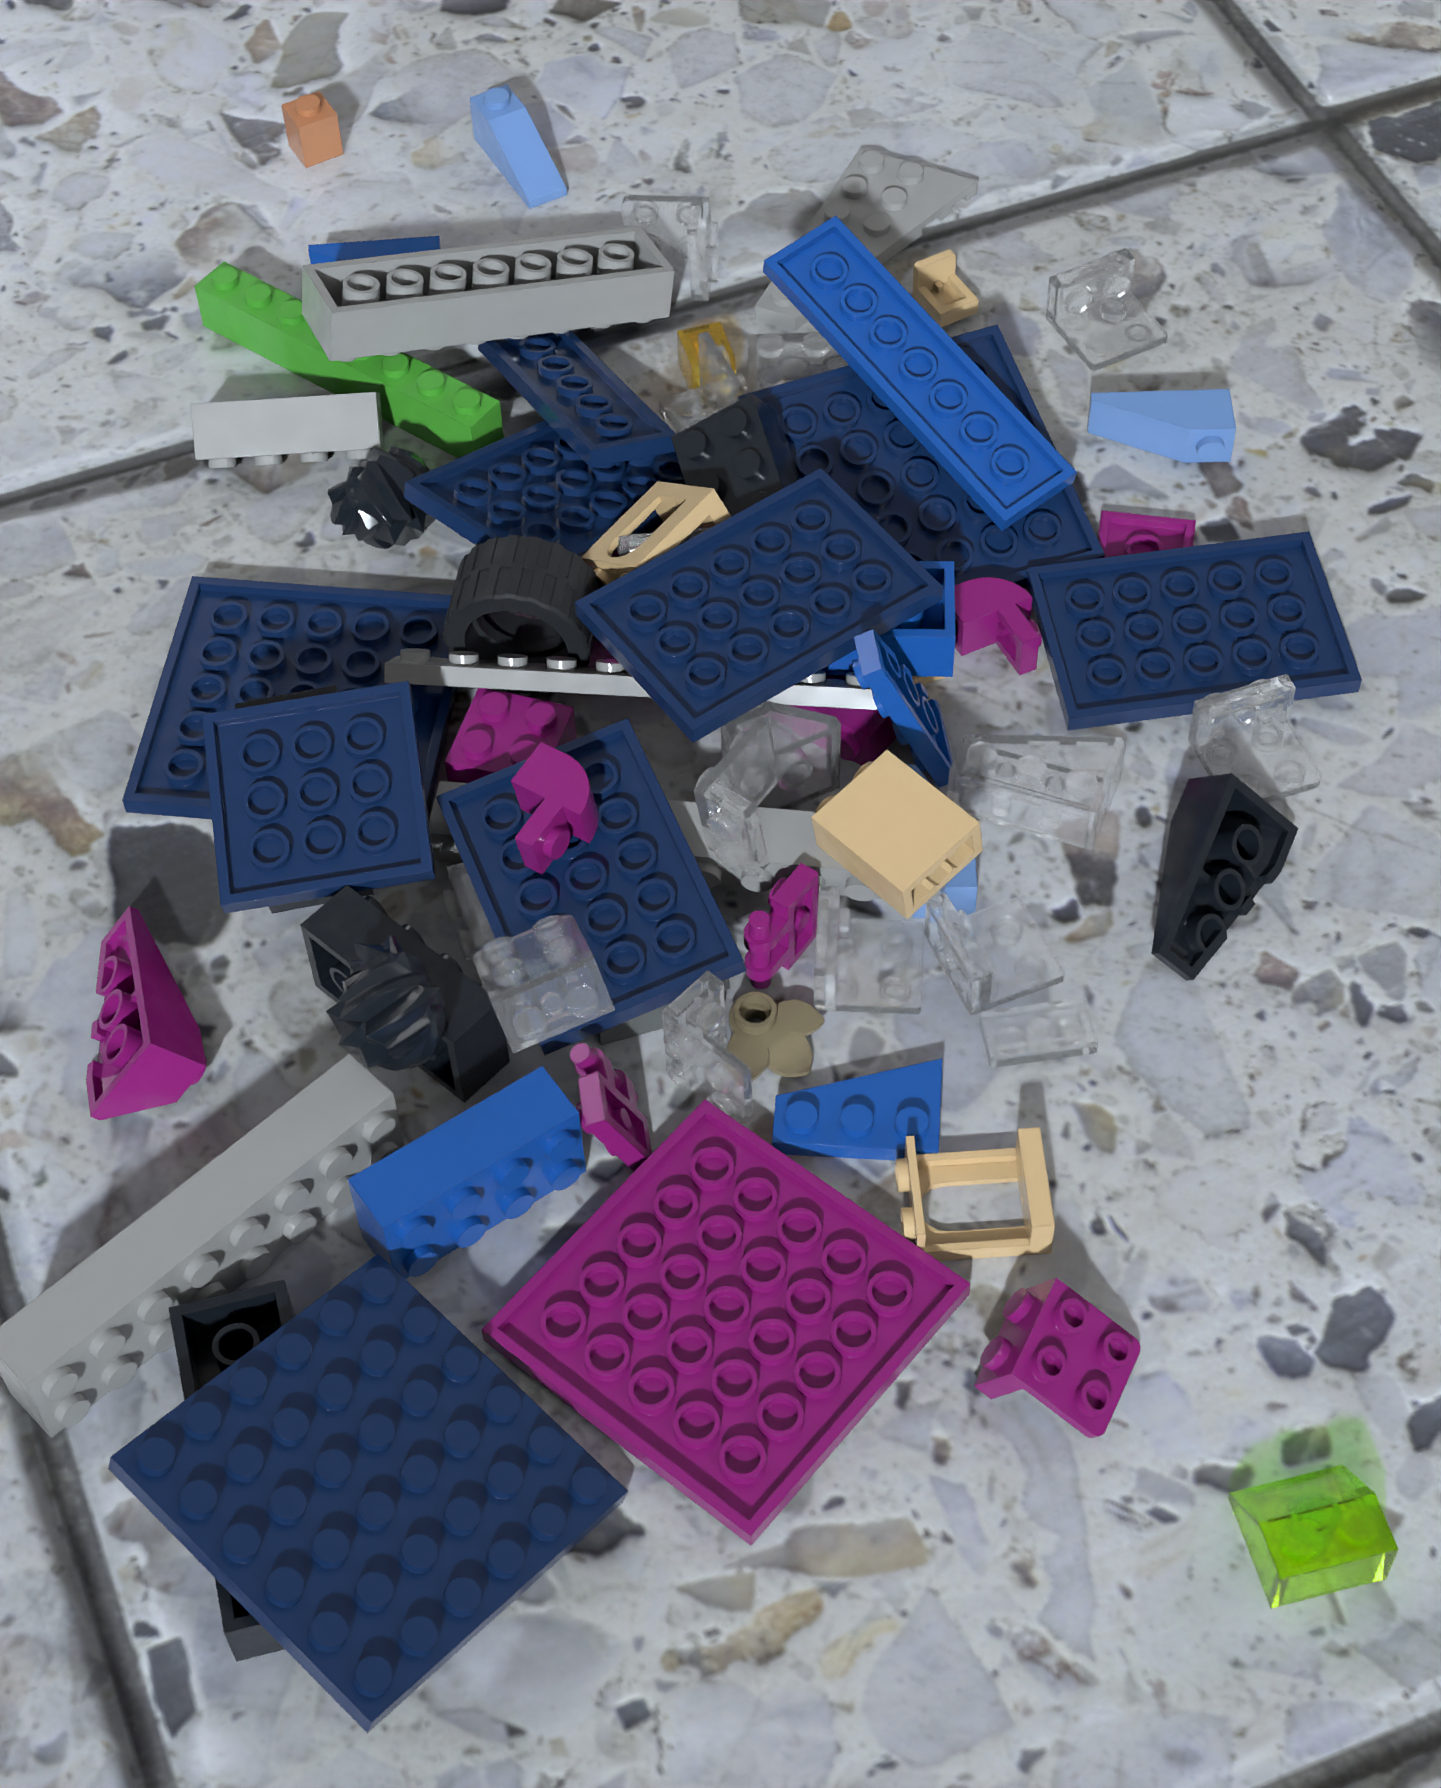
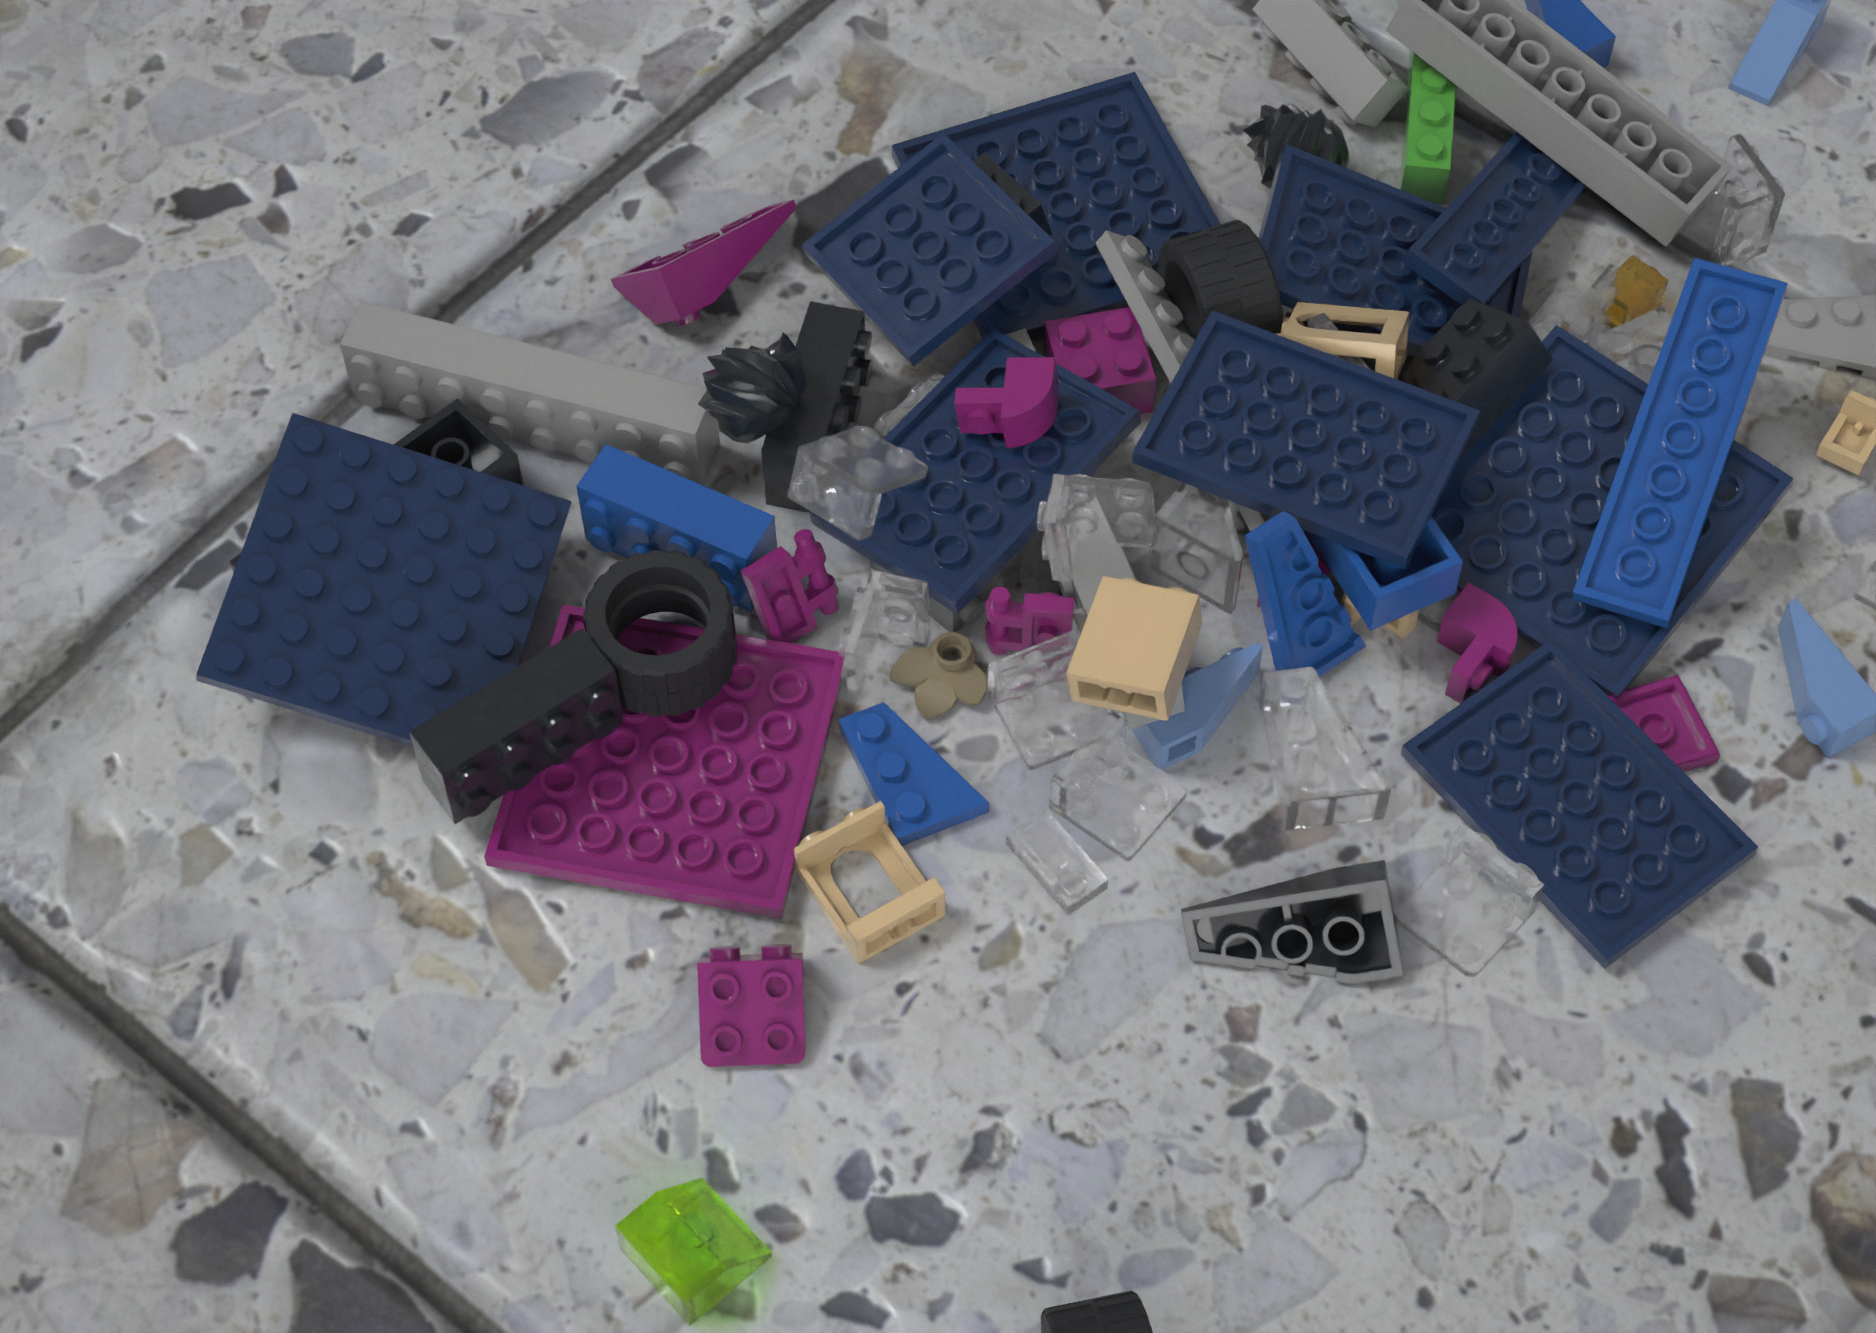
camera: 60 degrees right, 5 degrees up
(593, 1178) = (664, 584): none -> black tyre
(645, 1417) = (518, 726): none -> black brick

